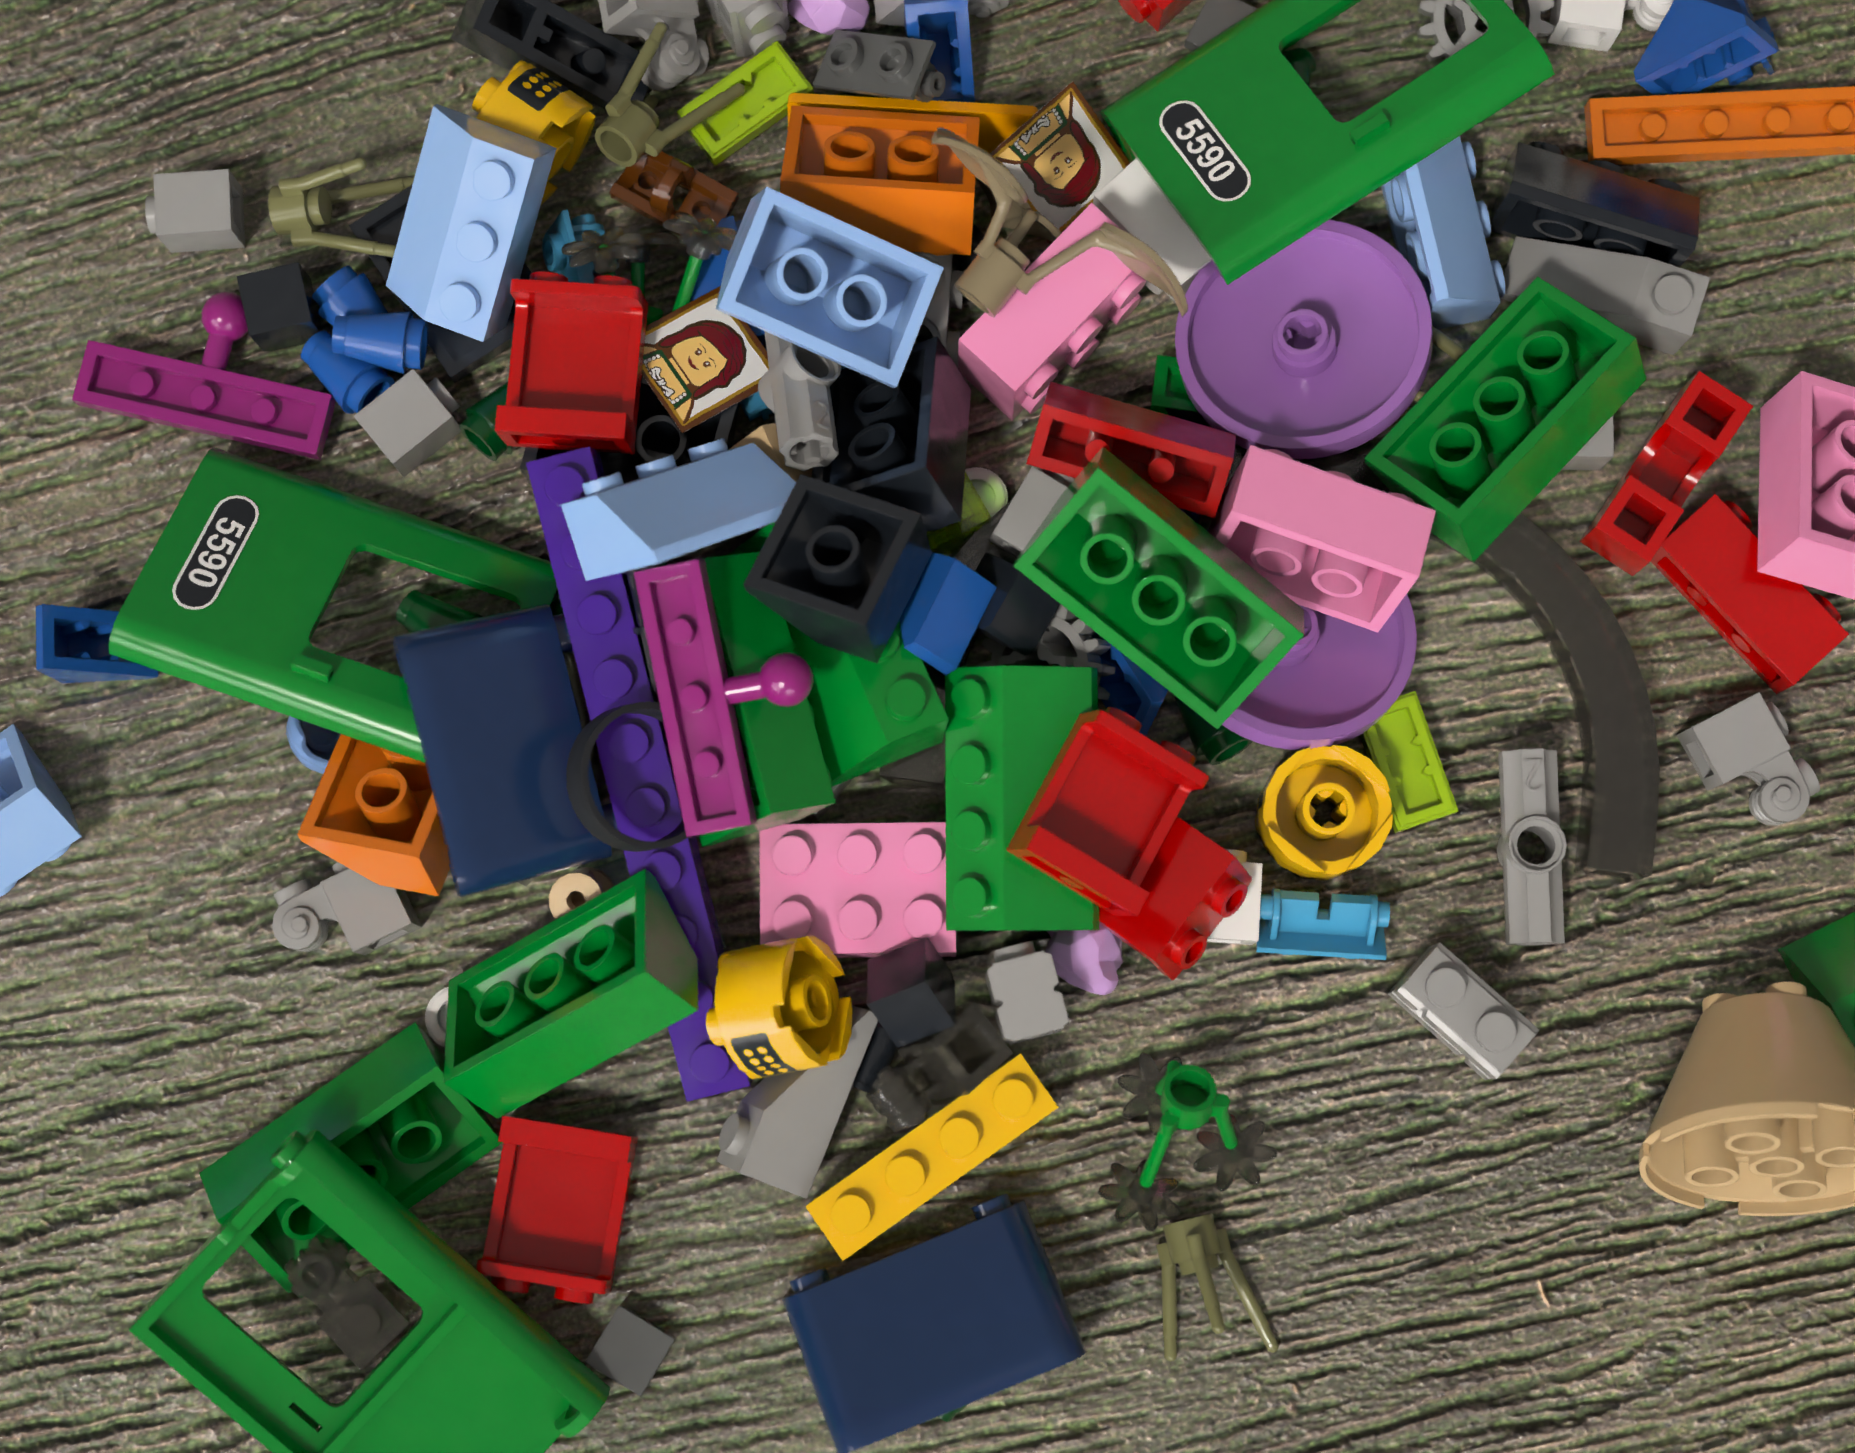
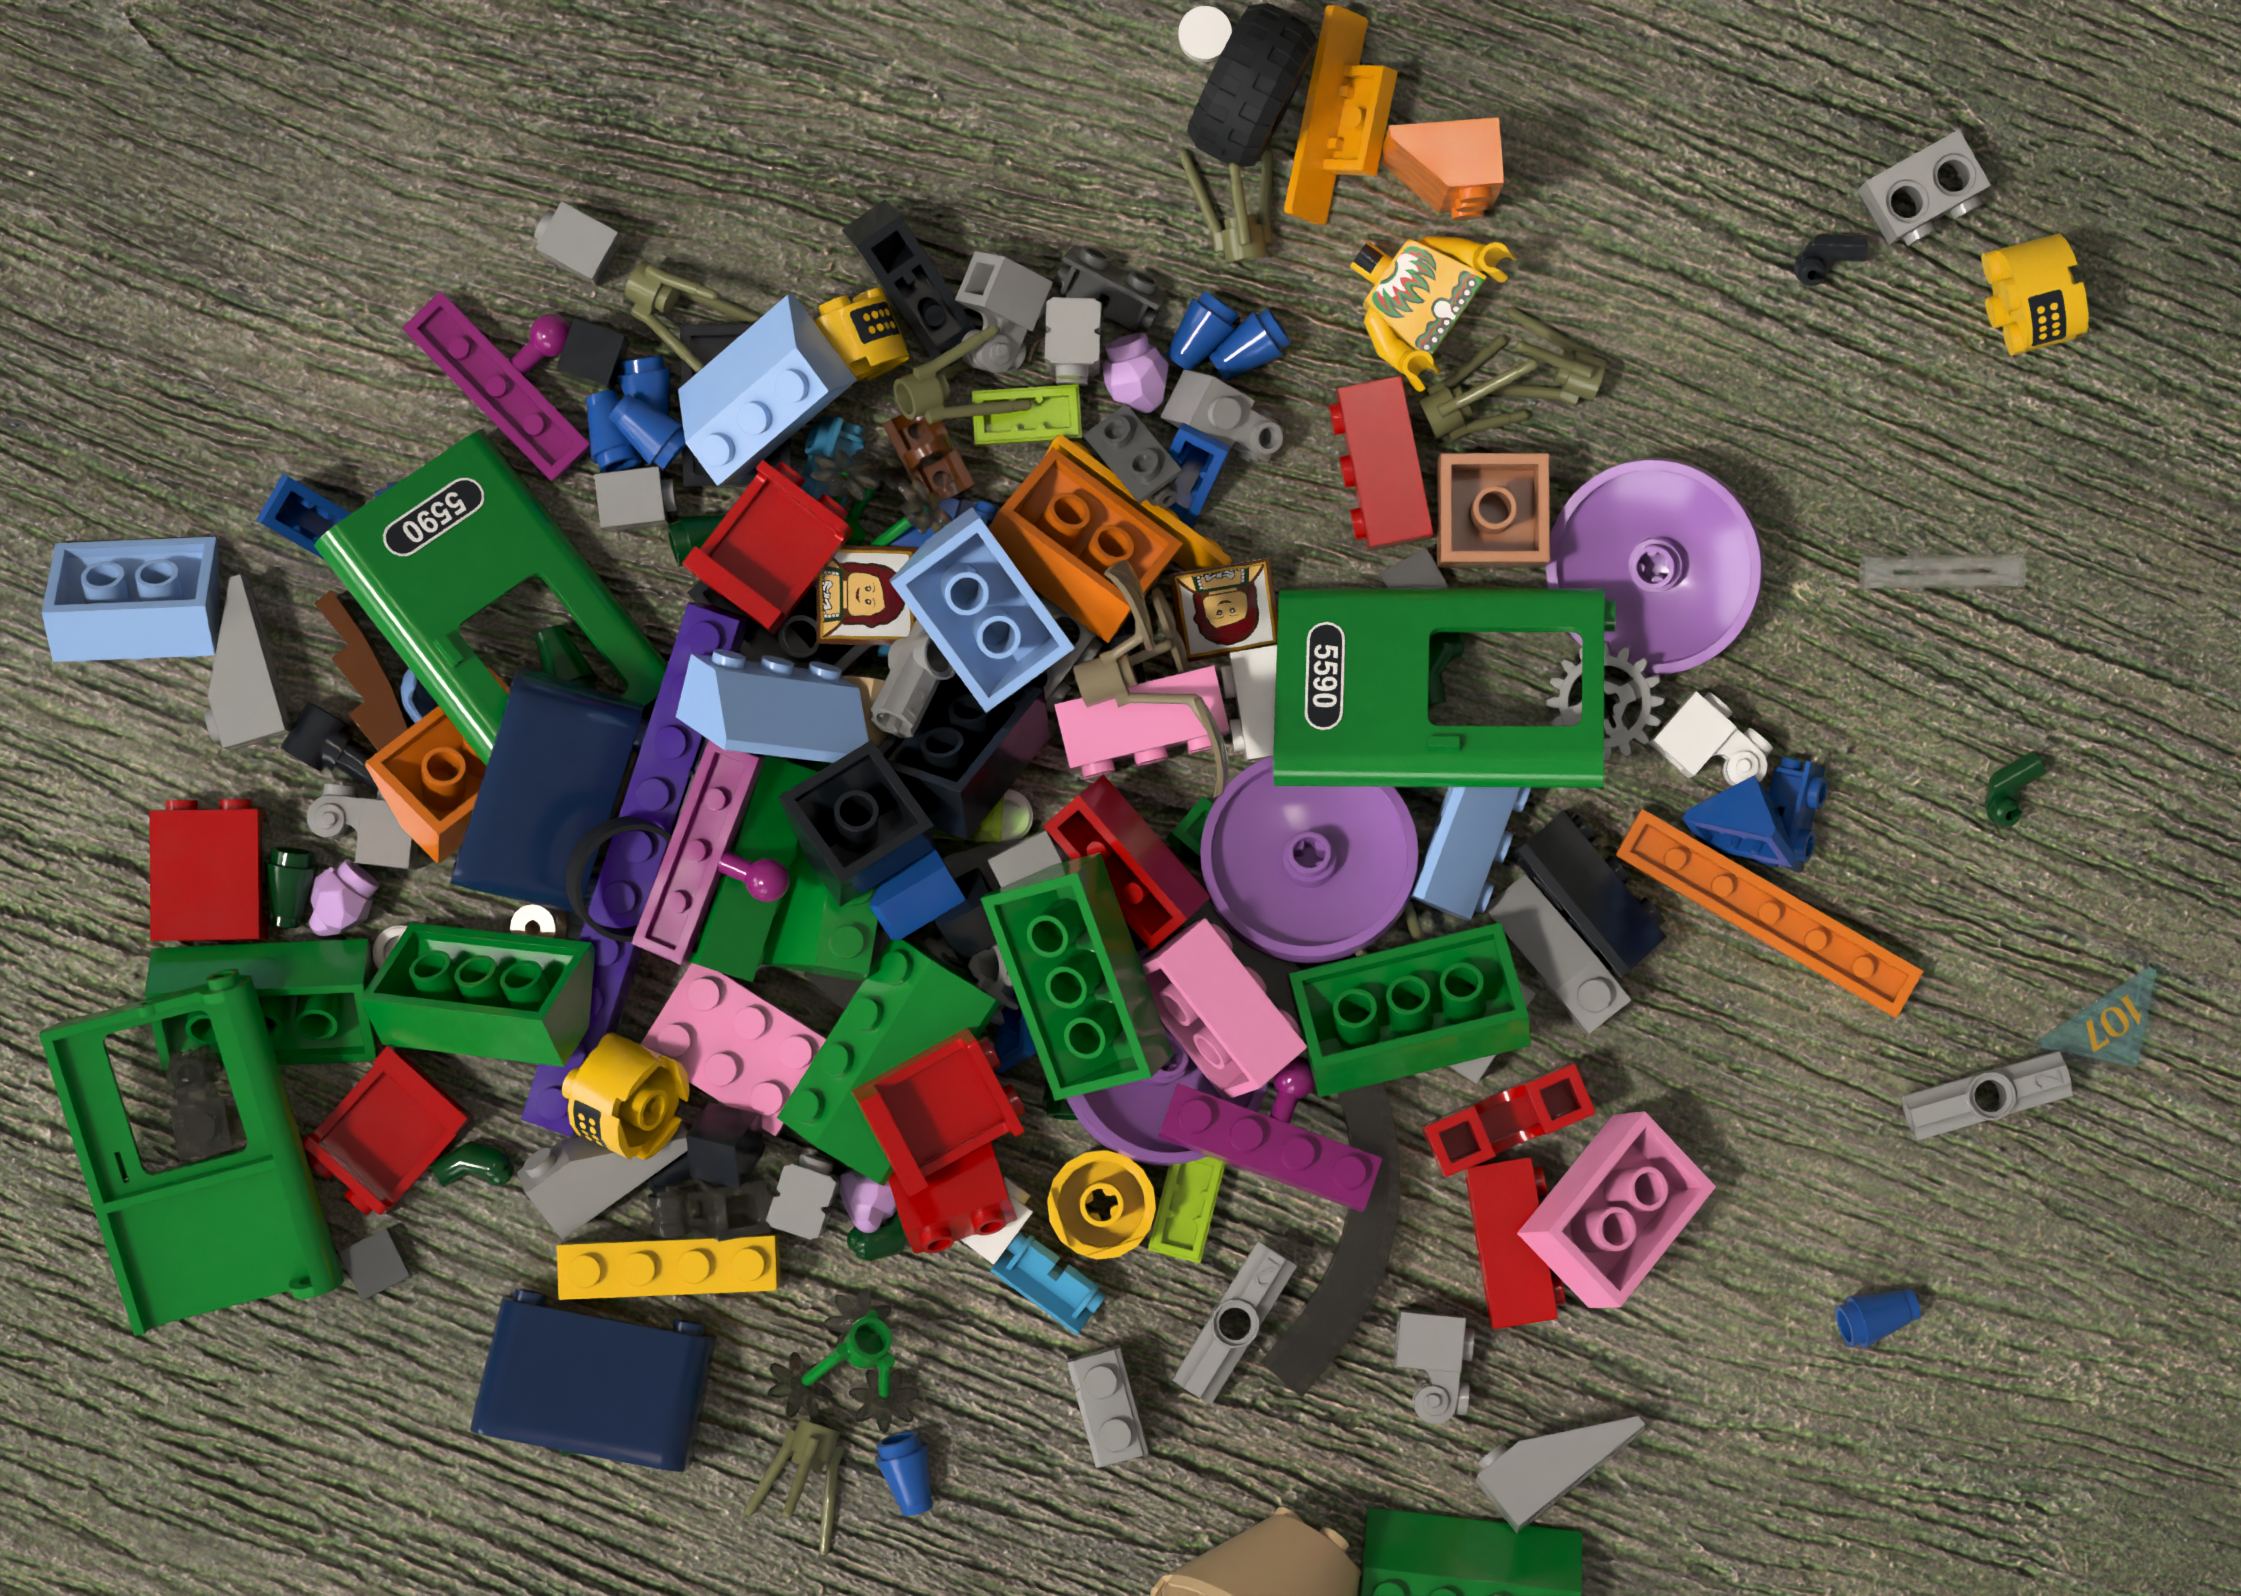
camera: 30 degrees right, 5 degrees up
(127, 846) = (244, 681): none -> light grey slope
(209, 1061) = (206, 872): none -> red panel
(247, 854) = (325, 743): none -> black pin
(285, 784) = (382, 712): none -> reddish brown slope
(301, 1021) = (288, 884): none -> dark green cone
(363, 999) = (341, 898): none -> lavender rock
(665, 1176) = (476, 1159): none -> dark green arm
(1130, 995) = (882, 1243): none -> dark green arm
(1304, 1210) = (906, 1471): none -> blue cone
(1455, 640) = (1270, 1142): none -> magenta plate

